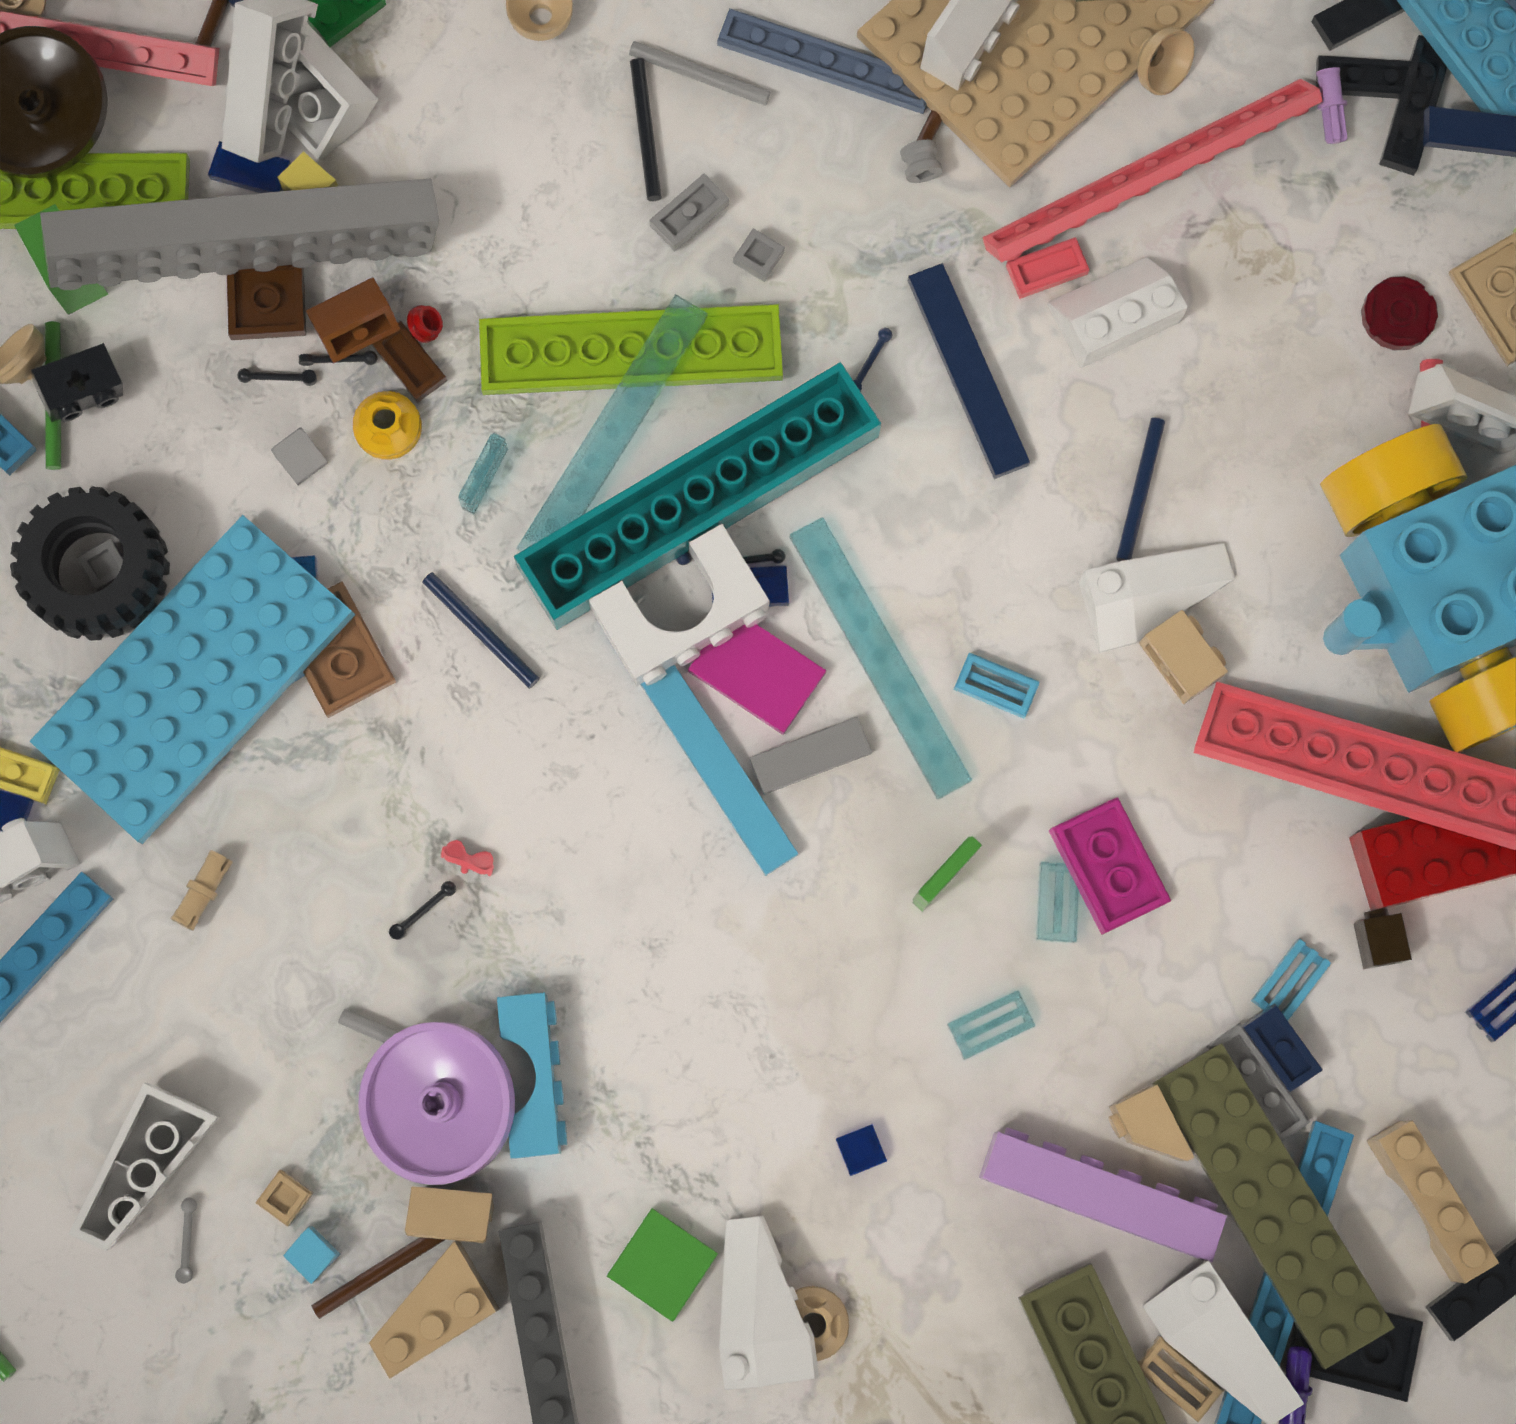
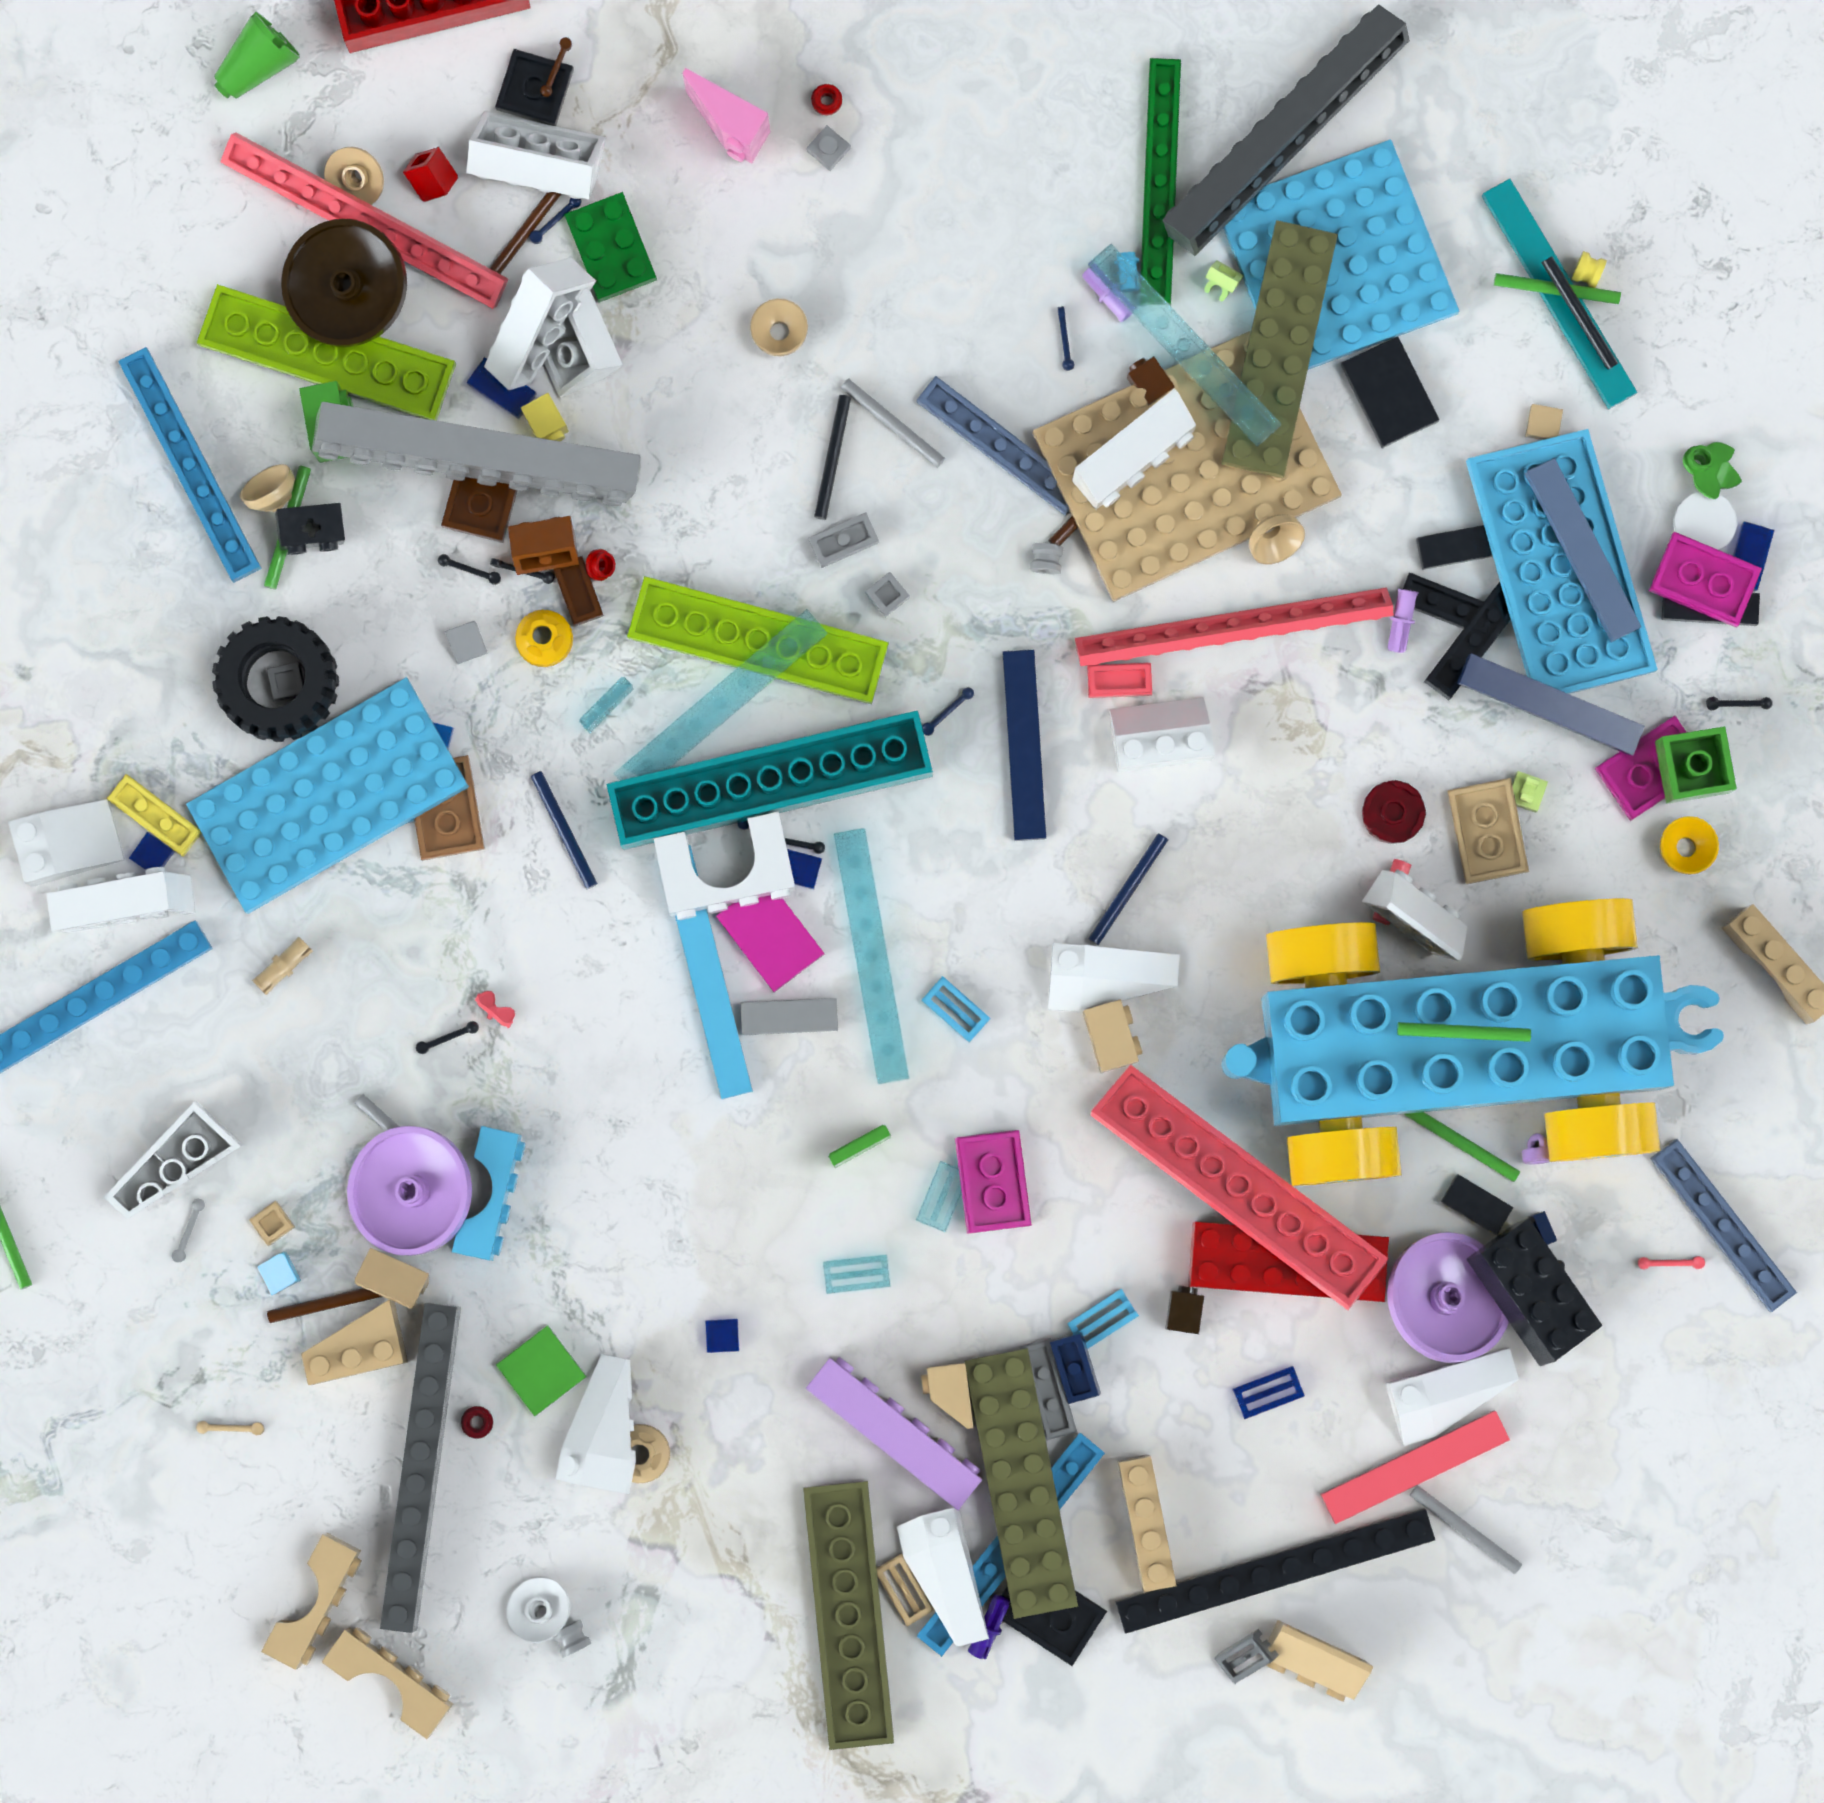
camera: 25 degrees right, 5 degrees up
(600, 1365) = (466, 1422): none -> dark red plate

